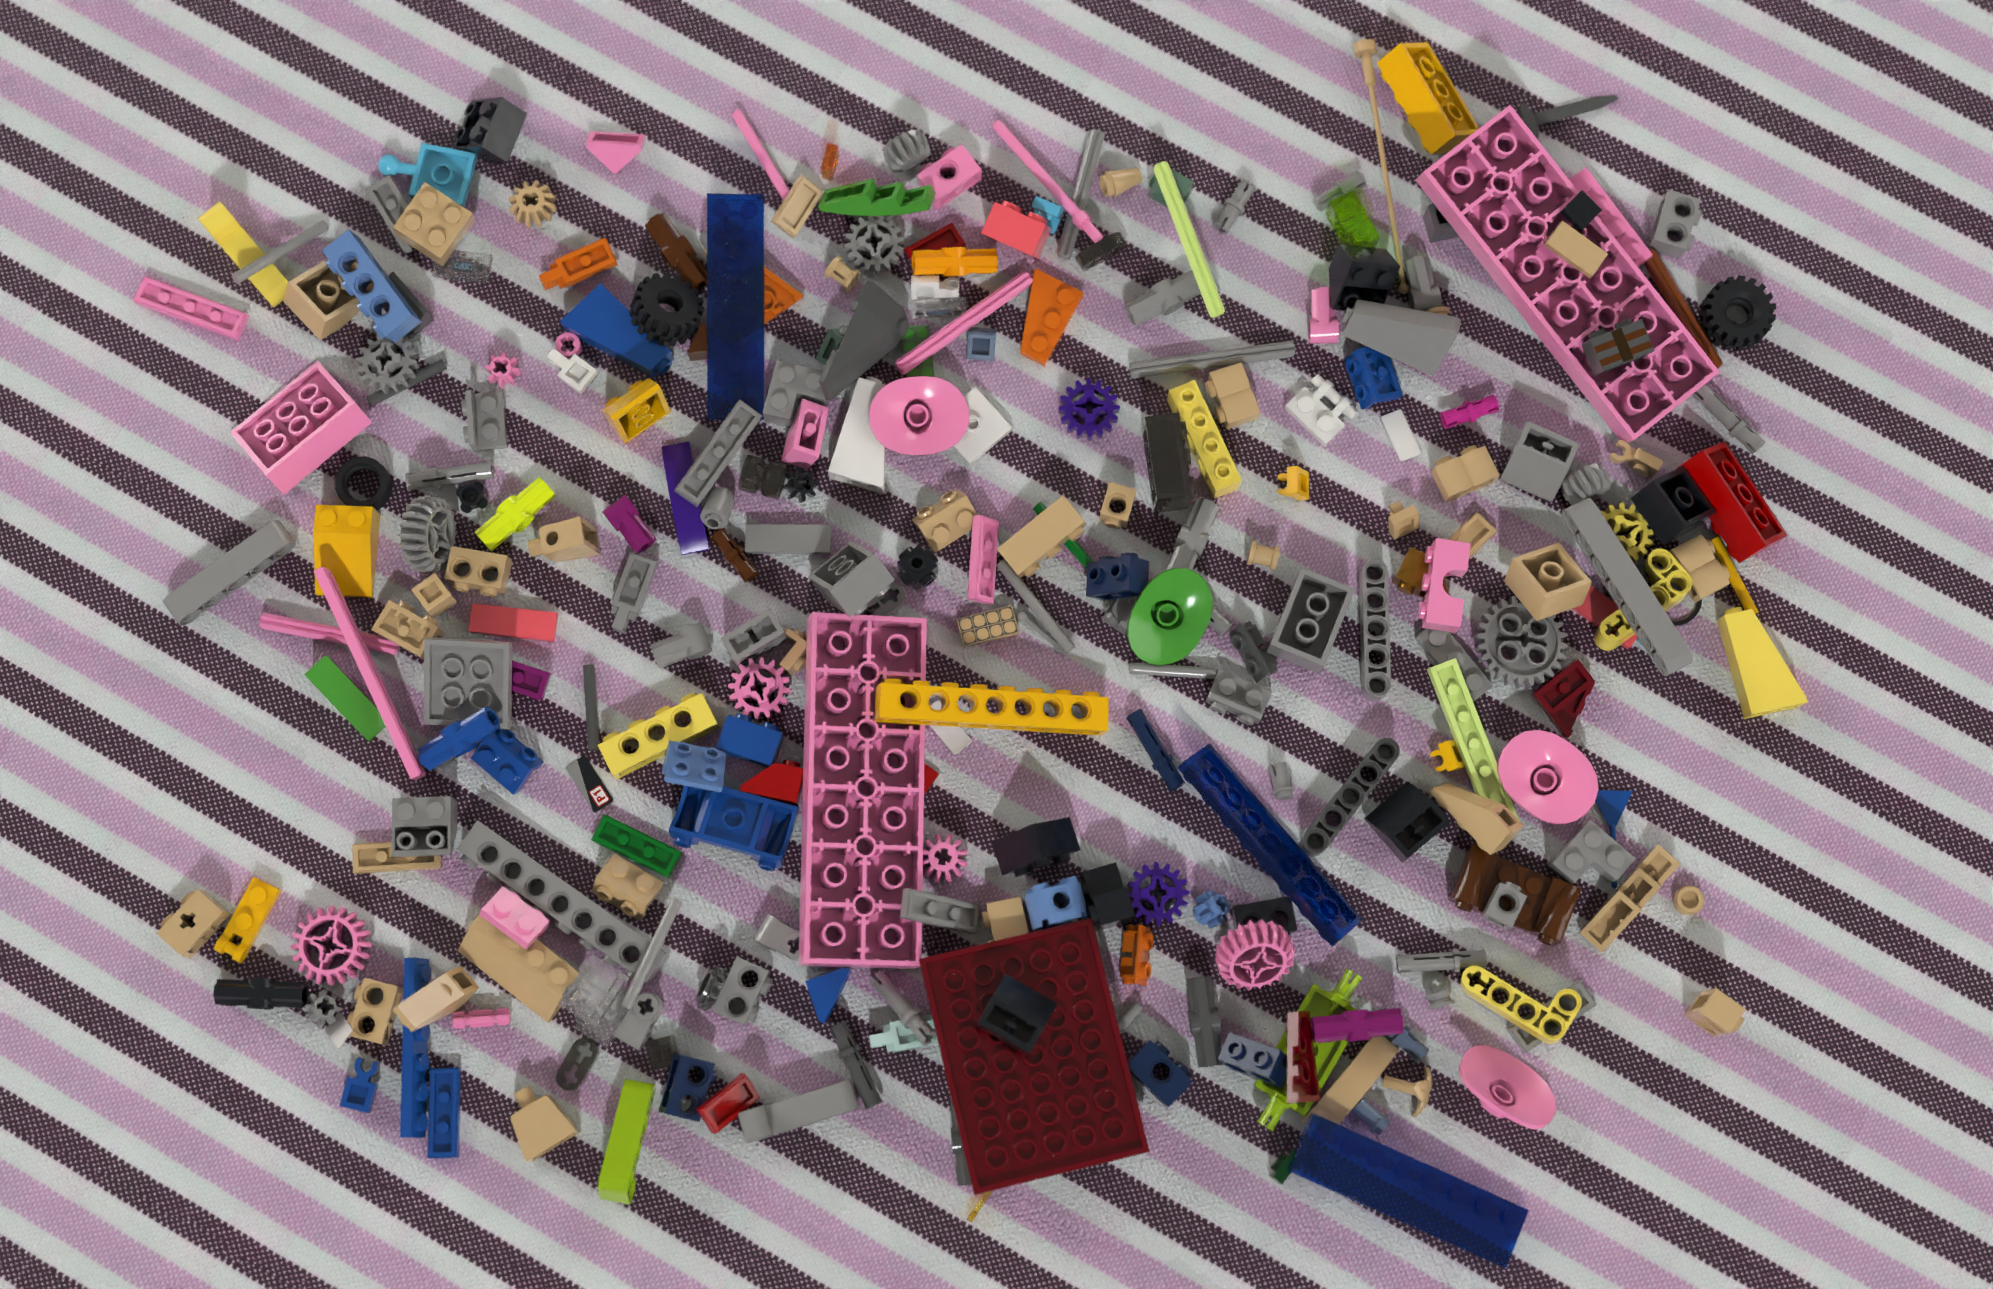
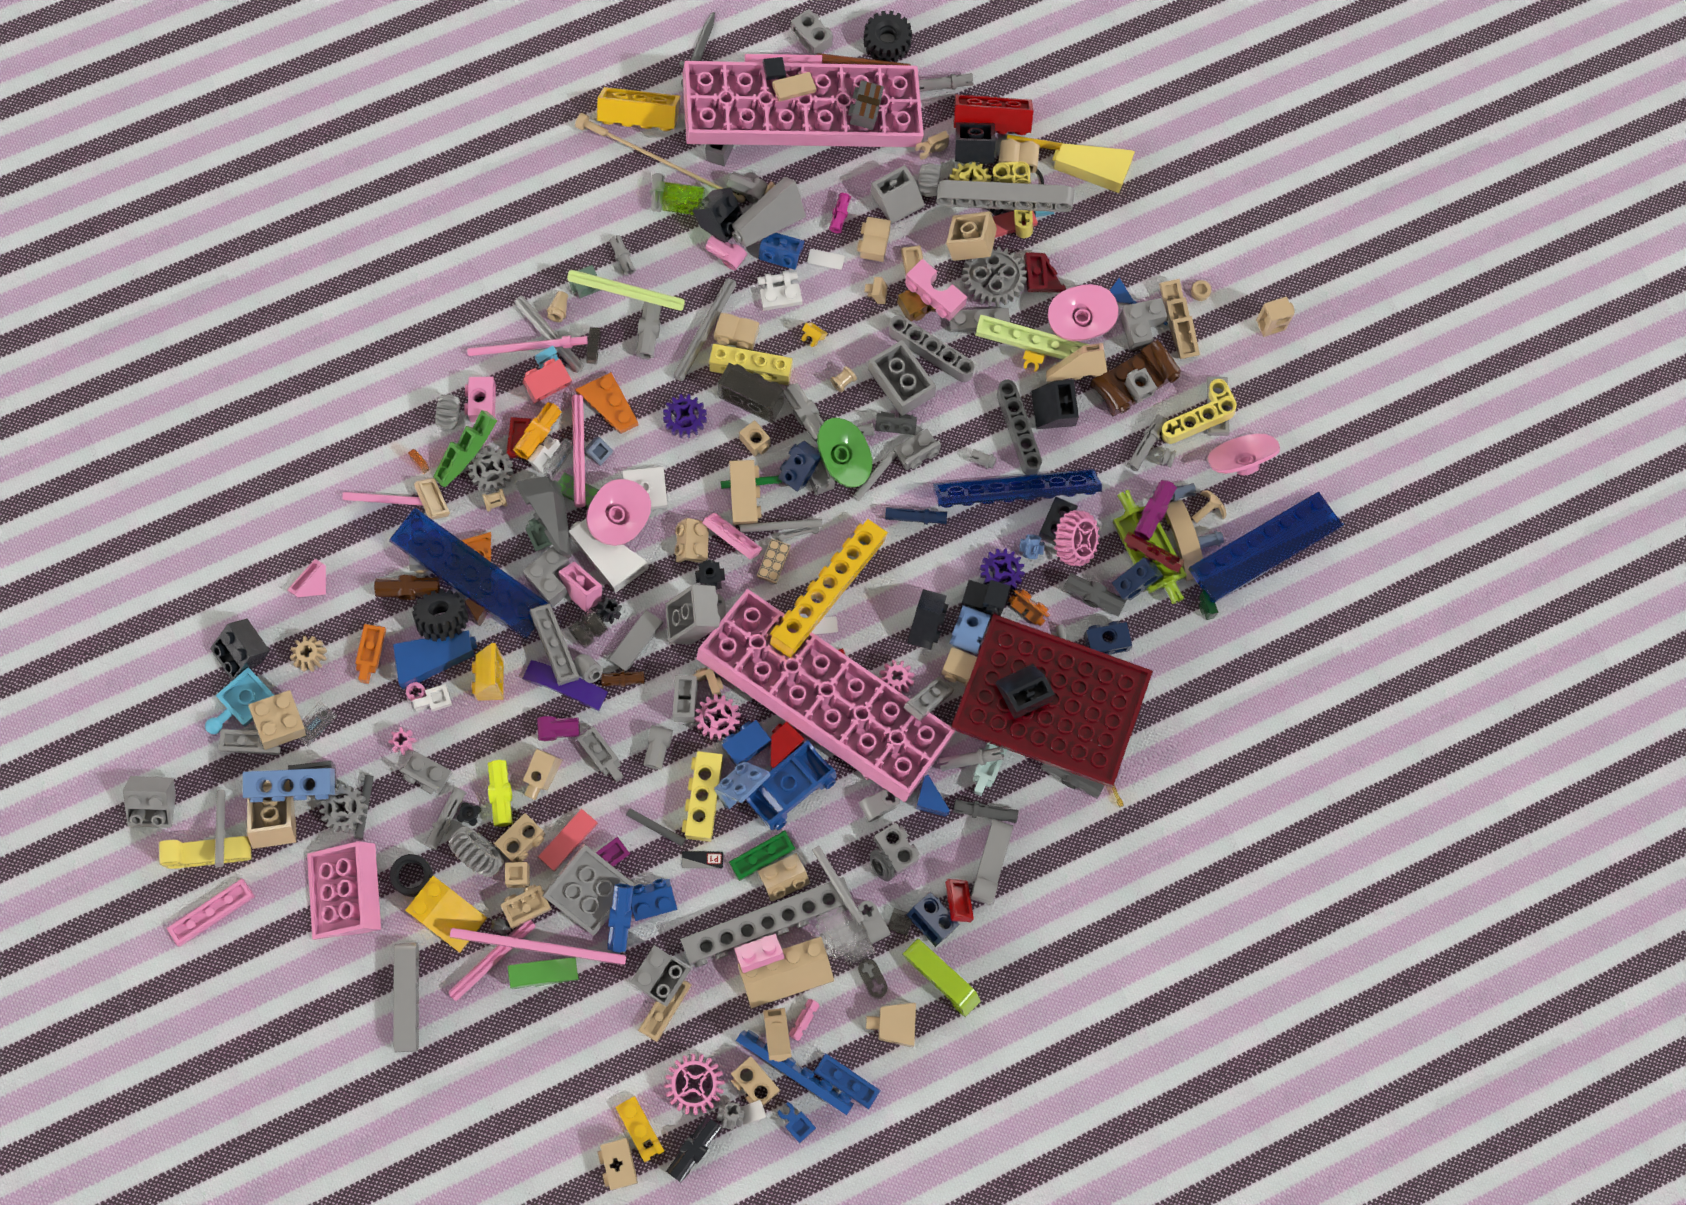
camera: 60 degrees left, 5 degrees down
(264, 160) = (149, 801): none -> light grey slope
(367, 617) = (500, 926): none -> dark grey plate

